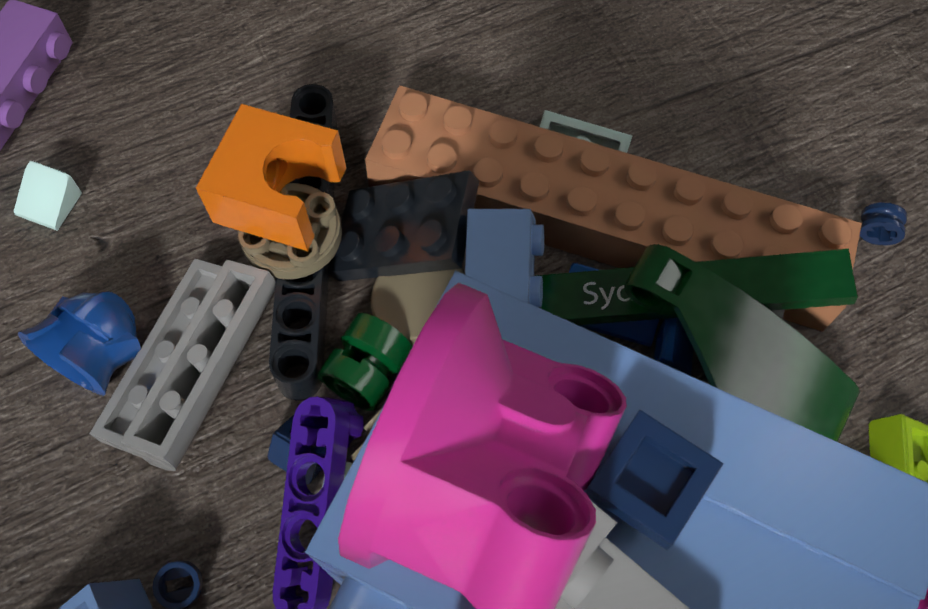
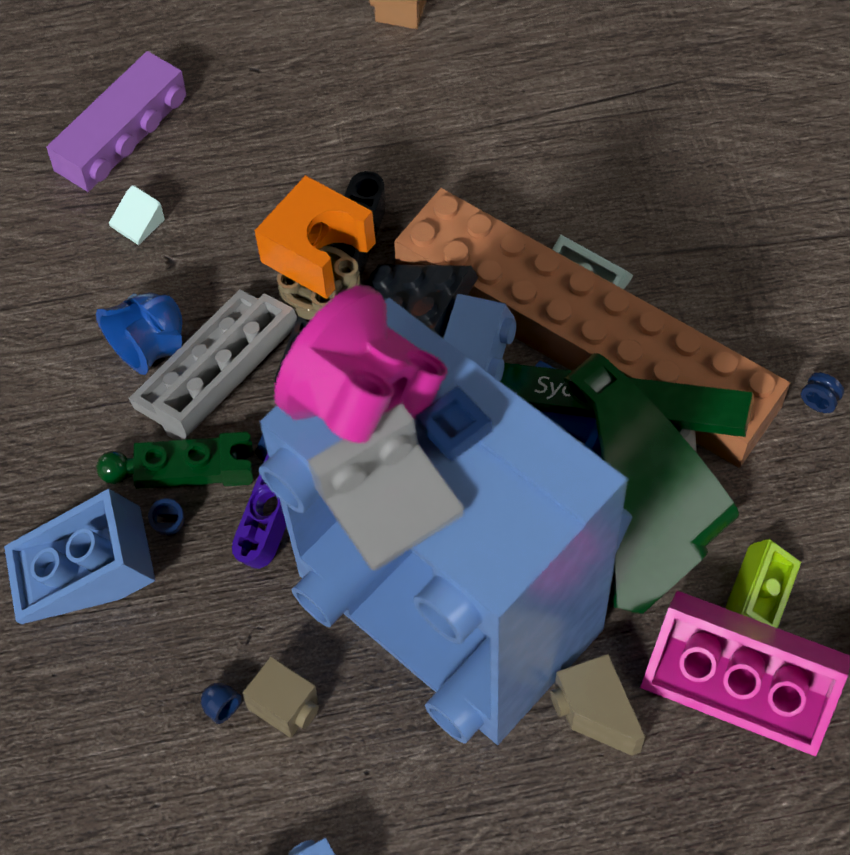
camera: 20 degrees right, 5 degrees down
(175, 503) = (182, 462): none -> dark green plate

